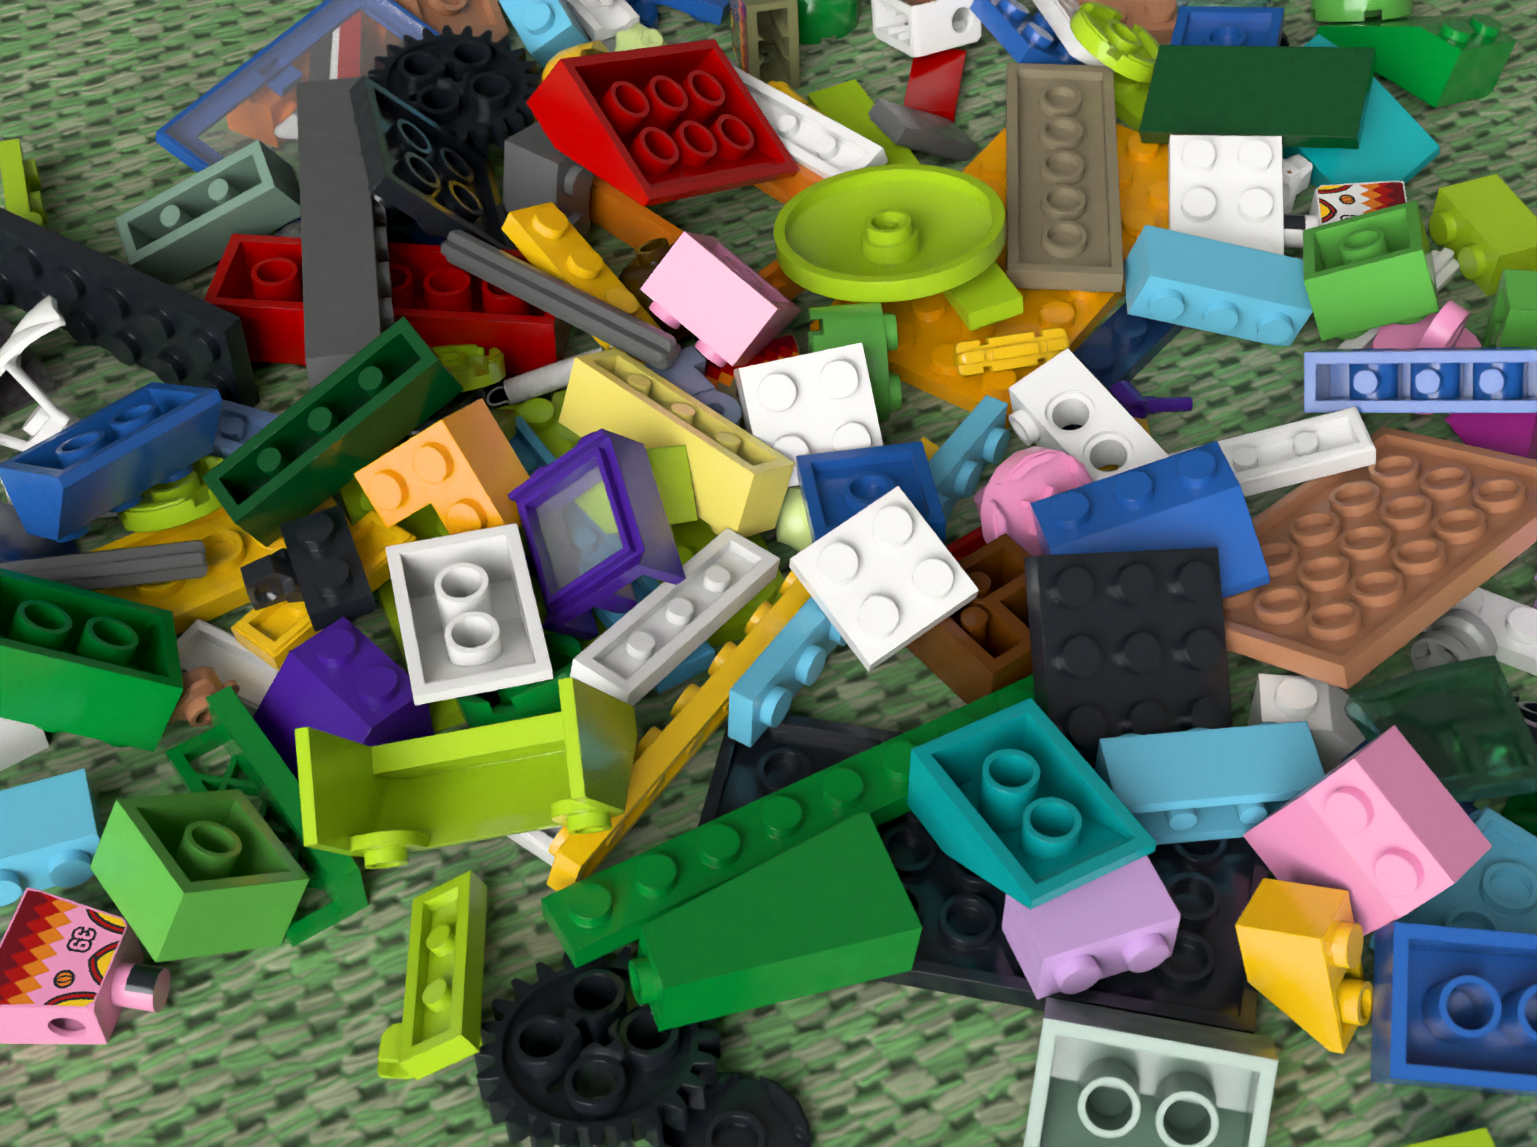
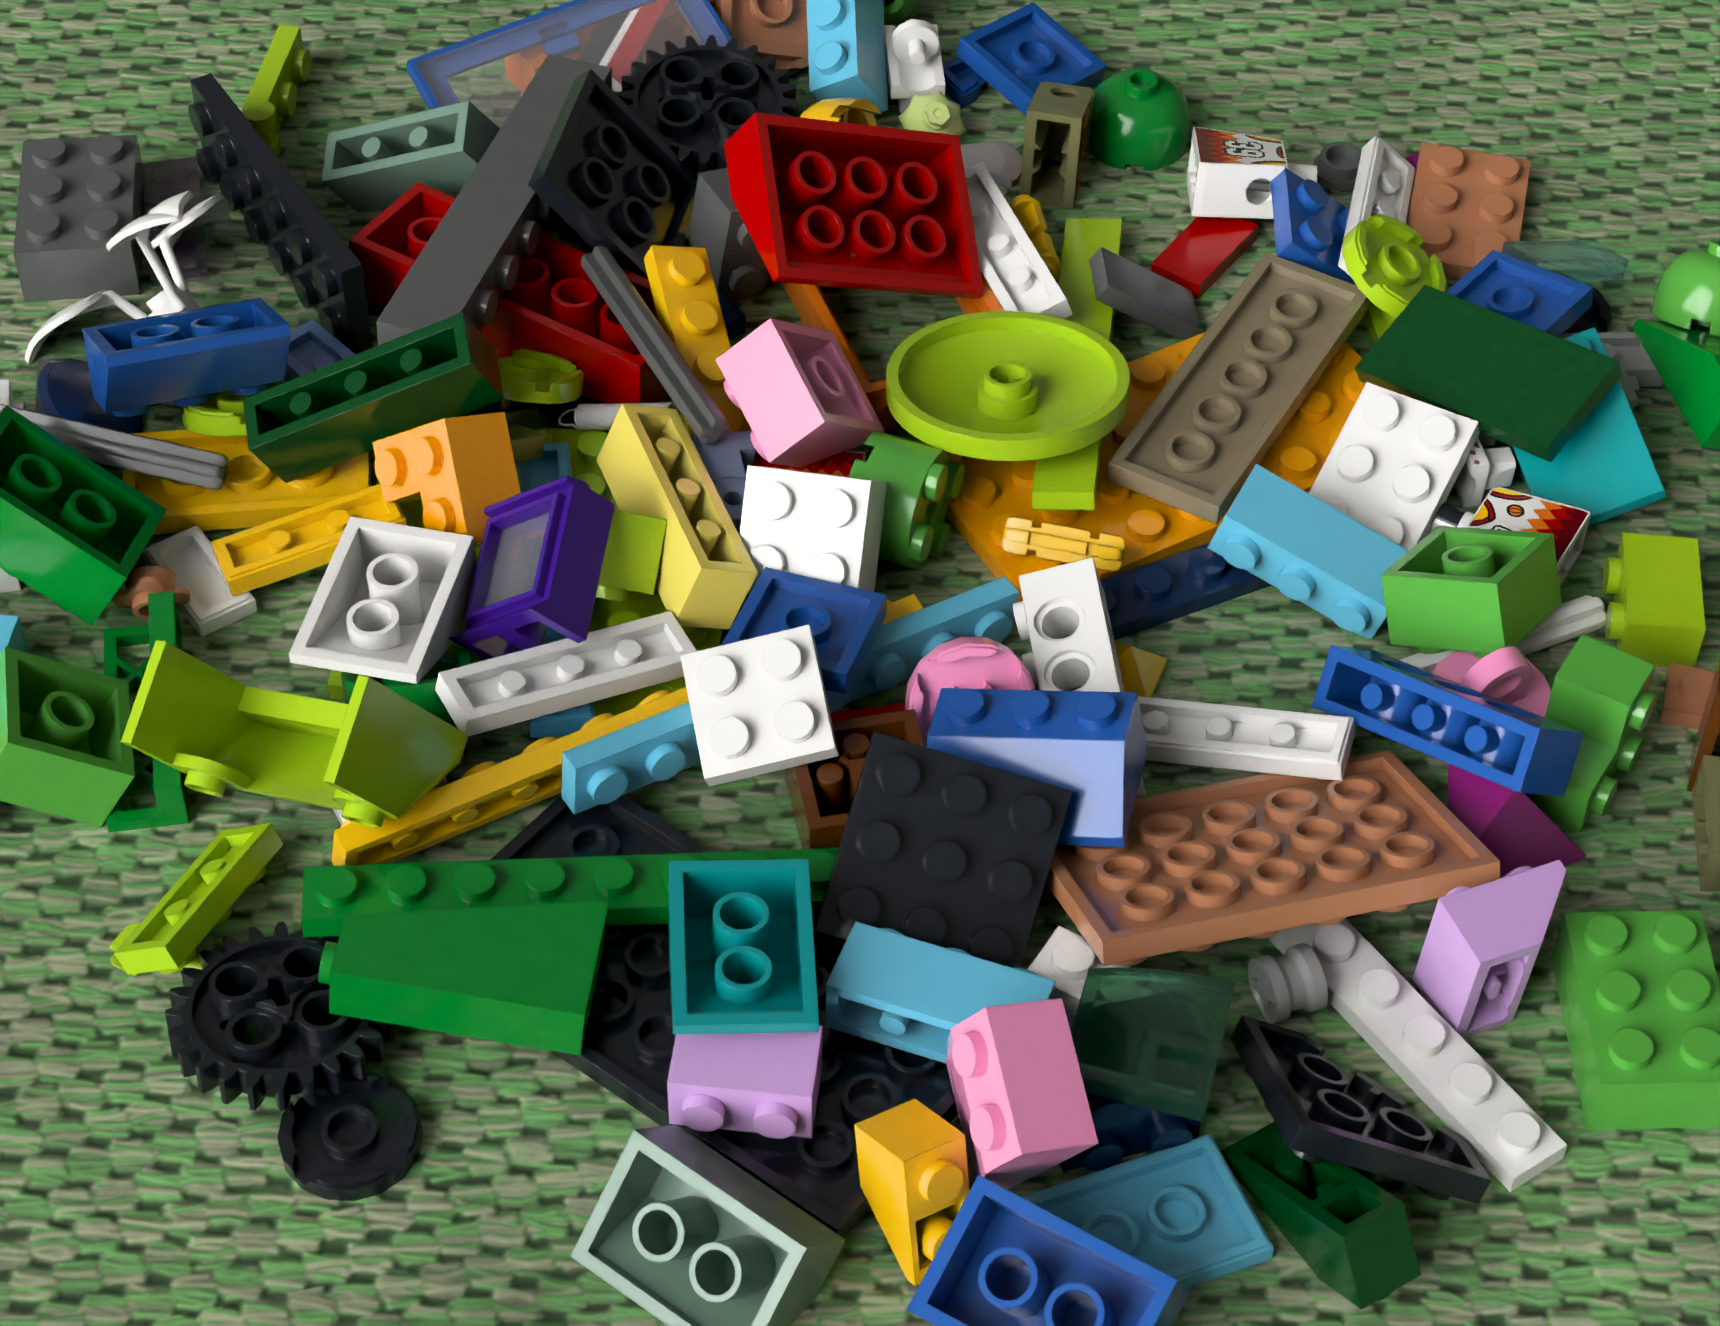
camera: 25 degrees right, 0 degrees up
(315, 568) = (299, 520): black hinge -> none
(342, 688) = (252, 632): dark purple slope -> none
(1140, 406) = (1160, 640): dark purple hand -> none

